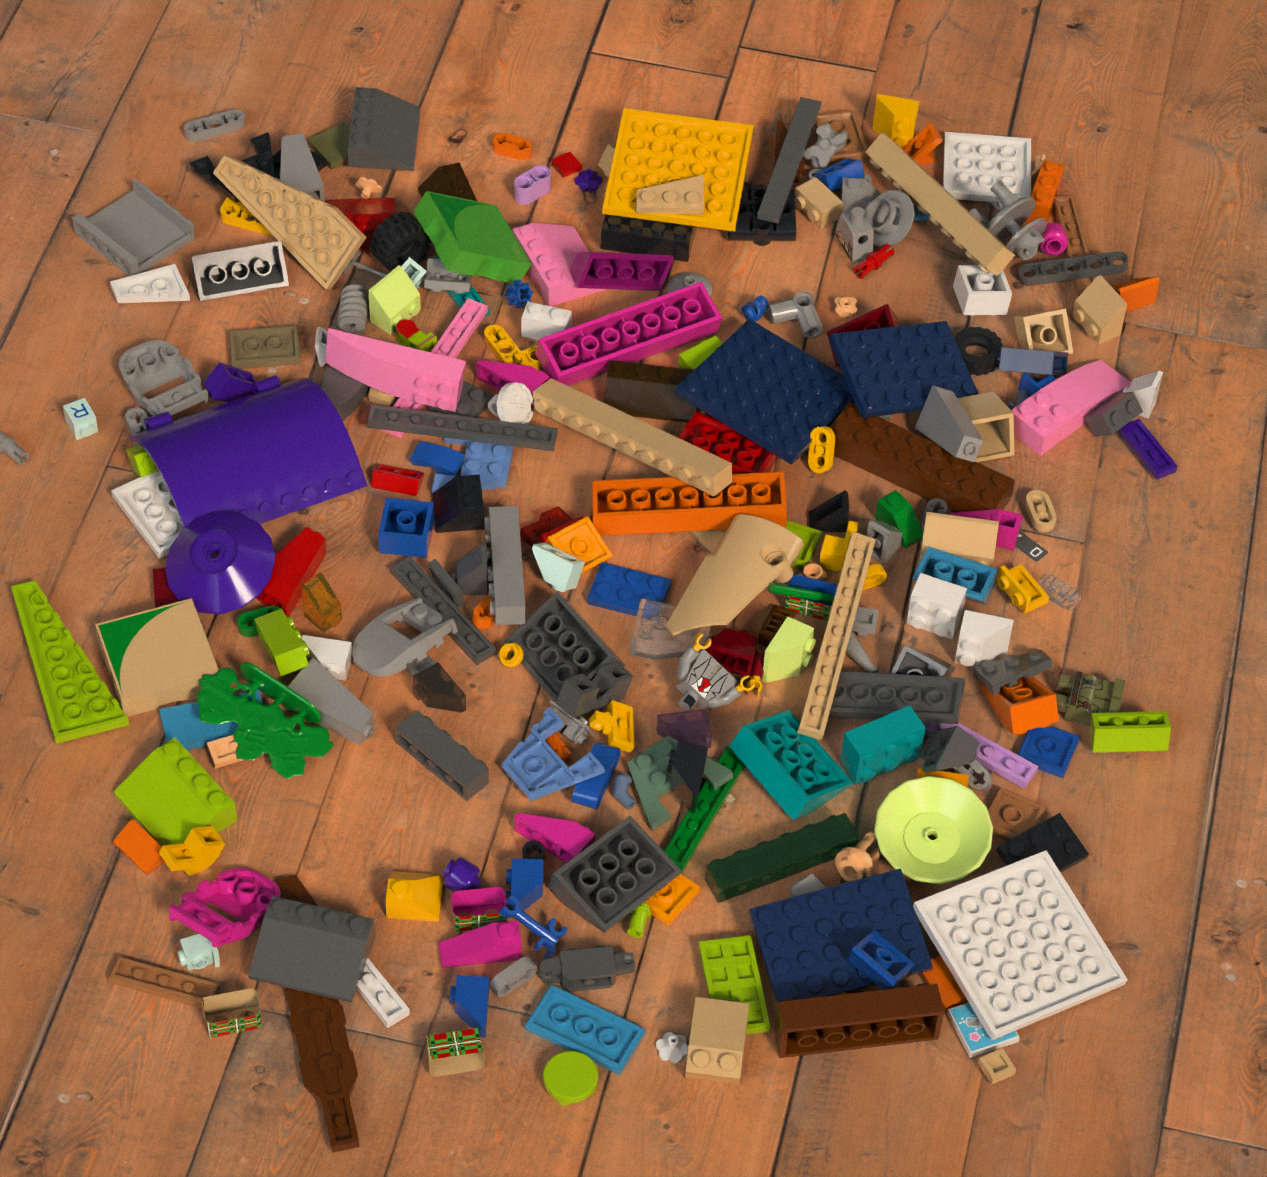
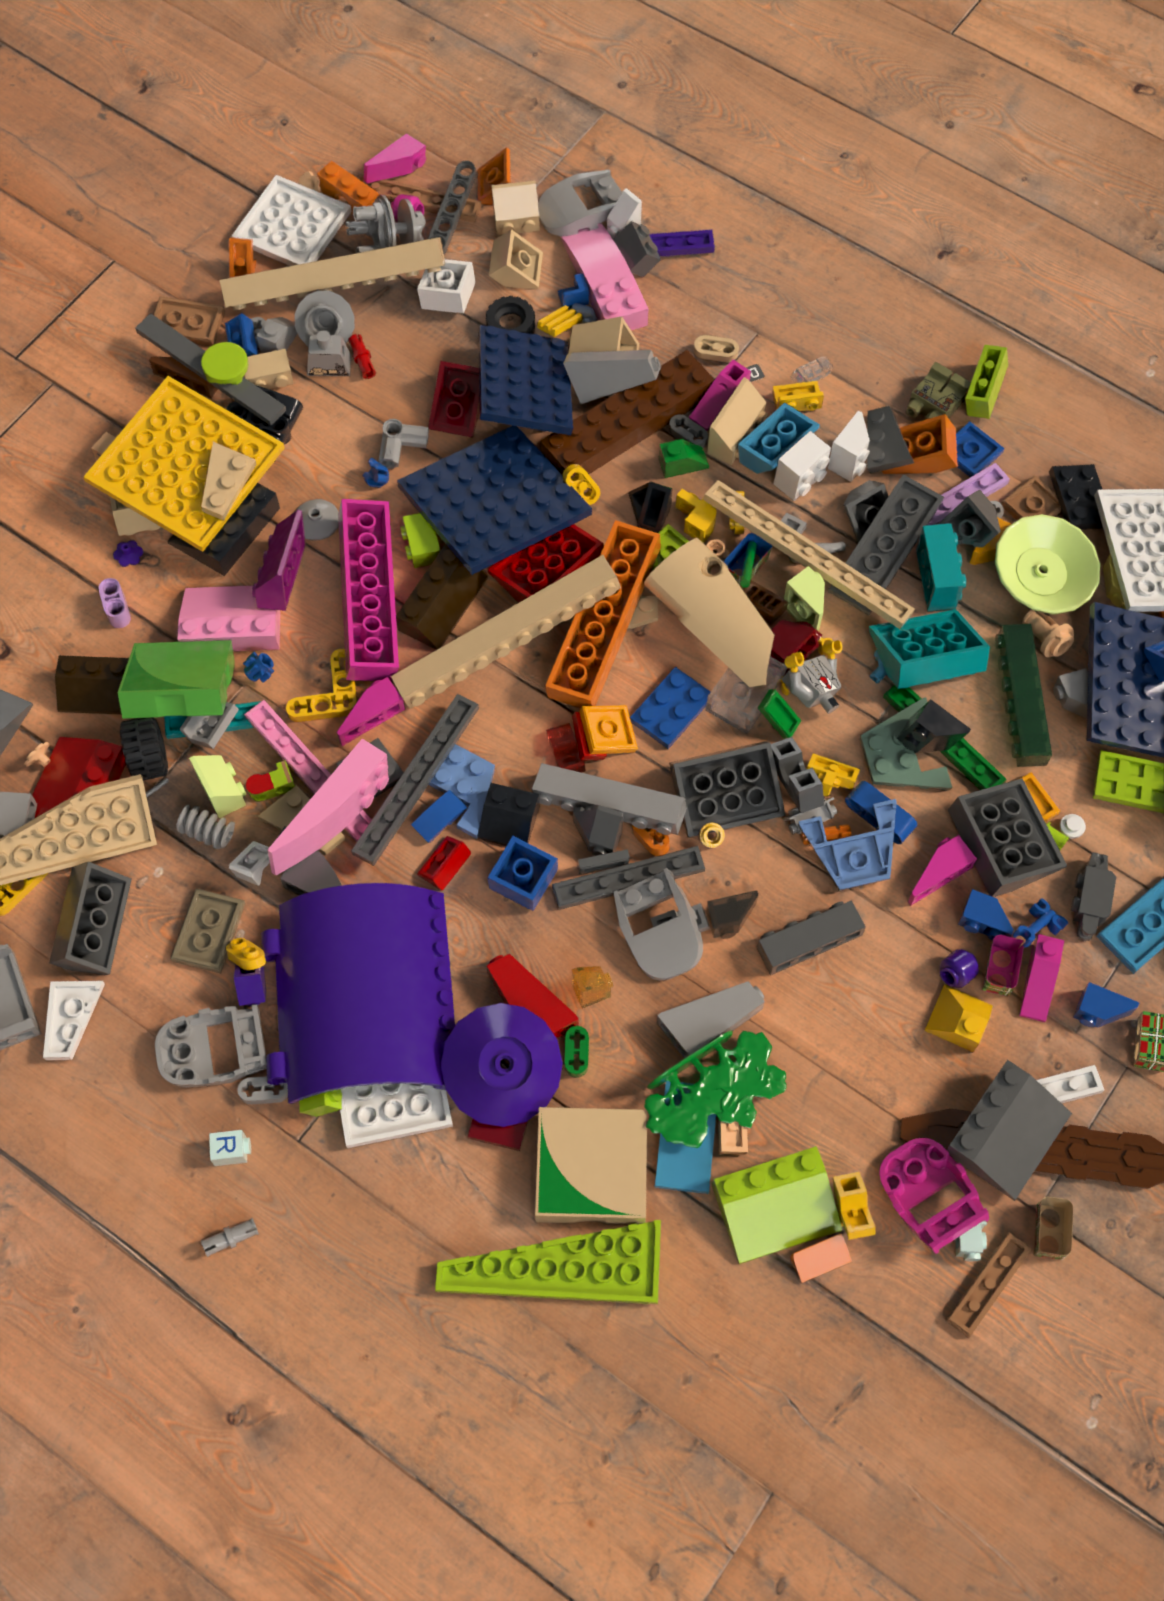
camera: 65 degrees left, 15 degrees up
(249, 371) = (245, 954): none -> yellow plate
(282, 641) = (626, 1037): lime brick -> none
(331, 654) = (655, 997): white slope -> none
(415, 272) = (186, 750): light aqua brick -> none
(512, 146) = (46, 603): orange beam -> none
(512, 403) = (407, 724): white tile -> none
(513, 976) = (1083, 961): light grey beam -> none
(533, 845) = (938, 898): black bush -> none
(544, 320) = (310, 656): white brick -> none
(558, 567) = (628, 754): light aqua slope -> none
(566, 164) = (98, 563): red tile -> none
(620, 789) = (902, 798): sand blue arm -> none
(656, 664) = (779, 714): none -> green tile
(657, 936) = (1072, 826): none -> white plate
(686, 727) = (857, 716): slope -> none
(794, 162) = (225, 363): none -> lime tile
(828, 144) = (203, 328): light grey animal -> none
(846, 306) = (405, 405): light nougat plate -> none
(887, 540) = (704, 475): light grey slope -> none
(896, 118) = (202, 265): yellow slope -> none
(993, 381) = (556, 320): none -> yellow tile
(1033, 361) = (551, 281): slope -> none
(1101, 212) = (396, 160): none -> dark pink slope
(1128, 345) = (564, 212): none -> light grey slope

